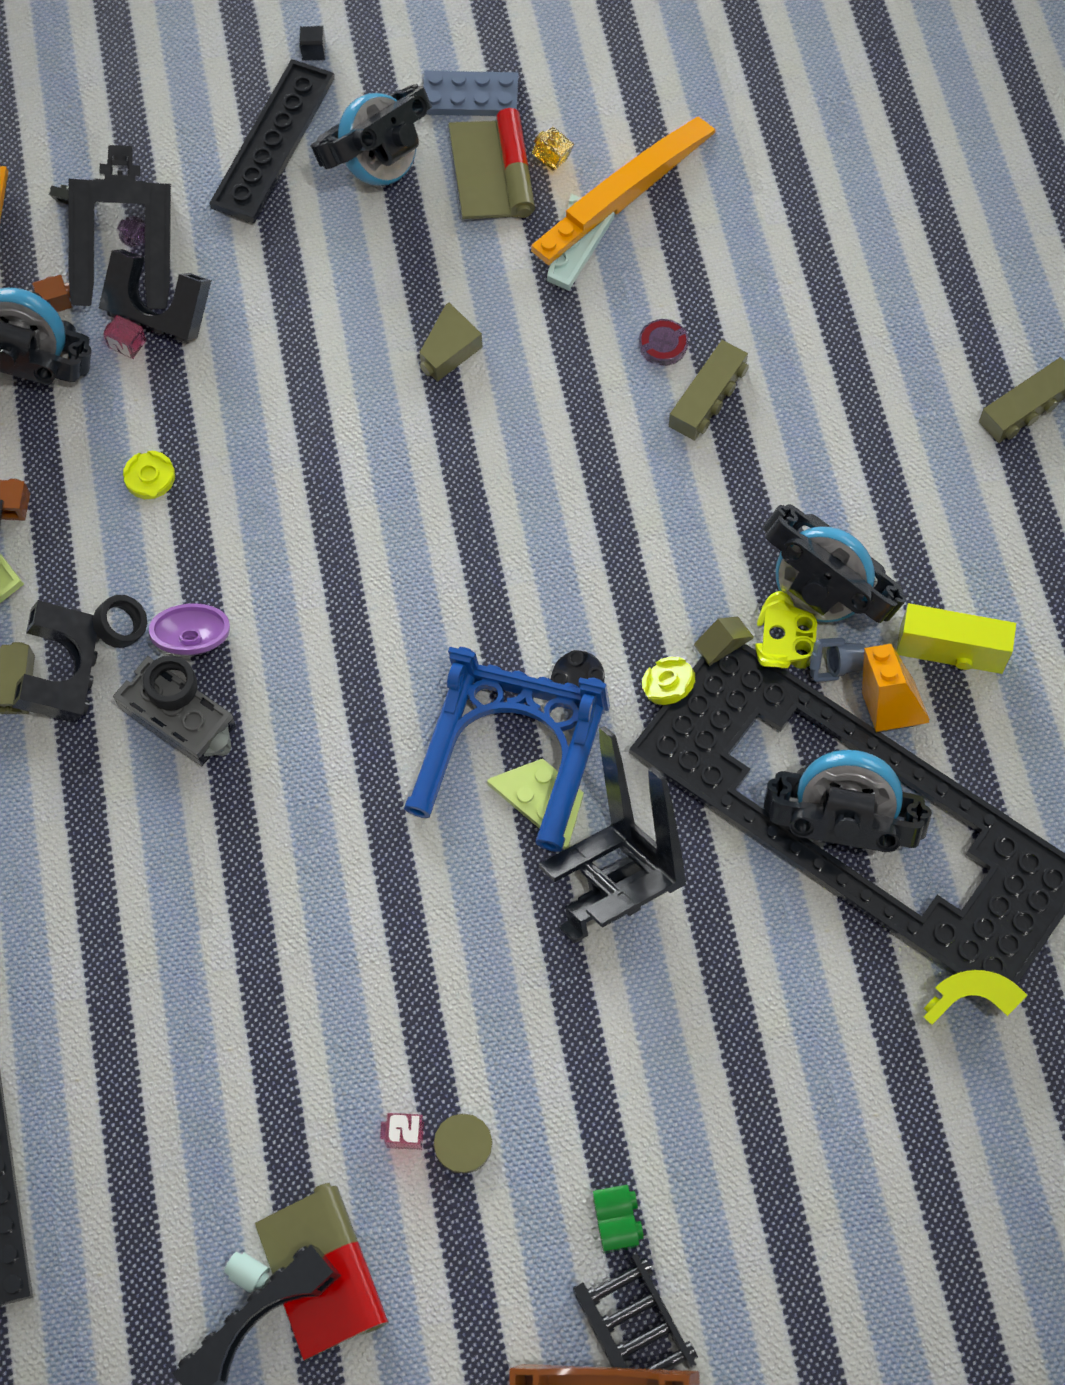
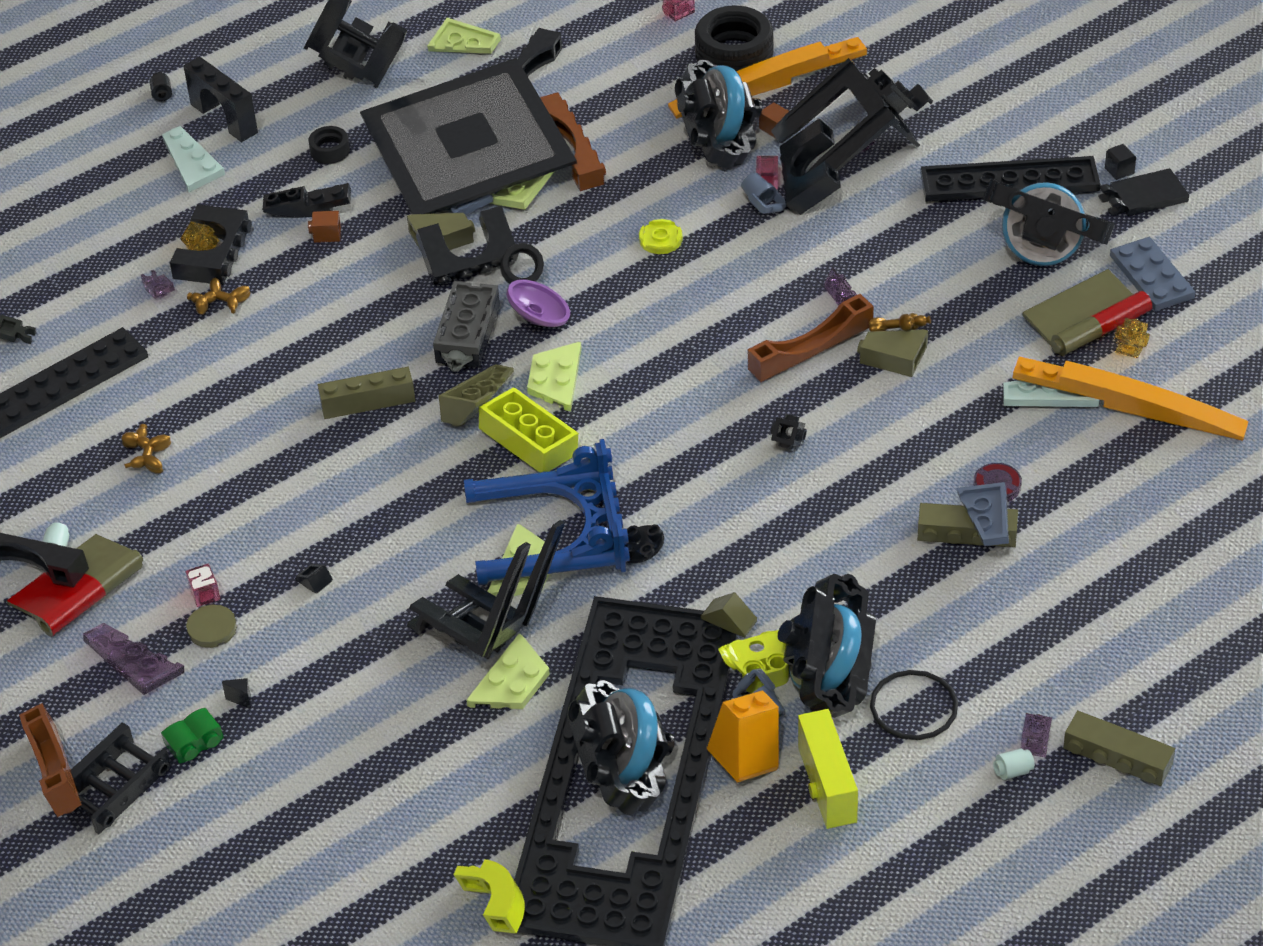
camera: 65 degrees right, 20 degrees down
(151, 355) = (762, 193): none -> sand blue piece
(154, 1105) = (155, 444): none -> pearl gold piece
(165, 664) = (476, 290): black tyre -> none
(213, 853) = (366, 392): none -> olive brick
(287, 742) = (464, 400): none -> olive wedge
(291, 658) = (555, 374): none -> yellowish green wing
(336, 351) = (838, 287): none -> clear purple hinge
(362, 45) = (1144, 193): none -> black tile
(368, 715) = (528, 430): none -> neon yellow brick
(393, 405) = (777, 356): none -> dark orange arch
(426, 314) = (905, 322): none -> pearl gold piece
(447, 1011) = (314, 577): none -> black slope
(469, 1247) = (132, 660): none -> clear purple wing
(508, 481) = (780, 431): none -> black brick
(580, 1145) = (237, 691): none -> black slope
(668, 680) = (671, 598): neon yellow tile -> none
(703, 875) = (512, 678): none -> yellowish green wing
(720, 363) = (987, 511): none -> sand blue wing
(914, 505) = (911, 736): none -> black piece
(984, 464) = (1036, 734): none -> clear purple brick
(1007, 488) = (1013, 763): none -> light aqua brick

